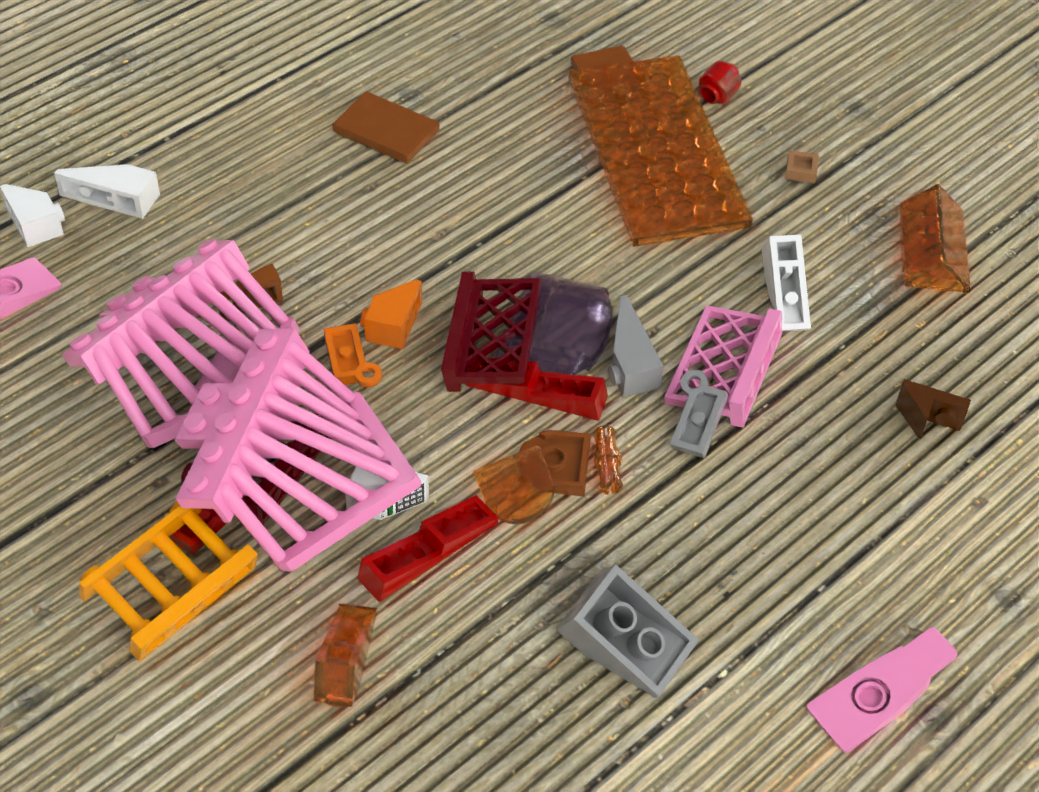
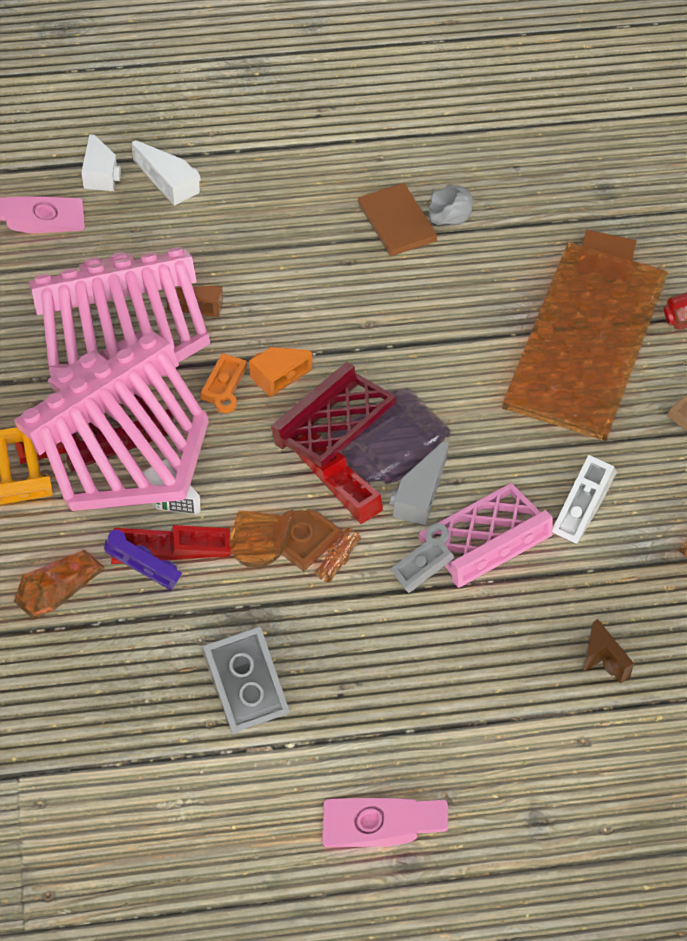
camera: 35 degrees right, 5 degrees up
(422, 574) = (141, 560): none -> dark purple plate
(431, 89) = (450, 205): none -> light grey hair

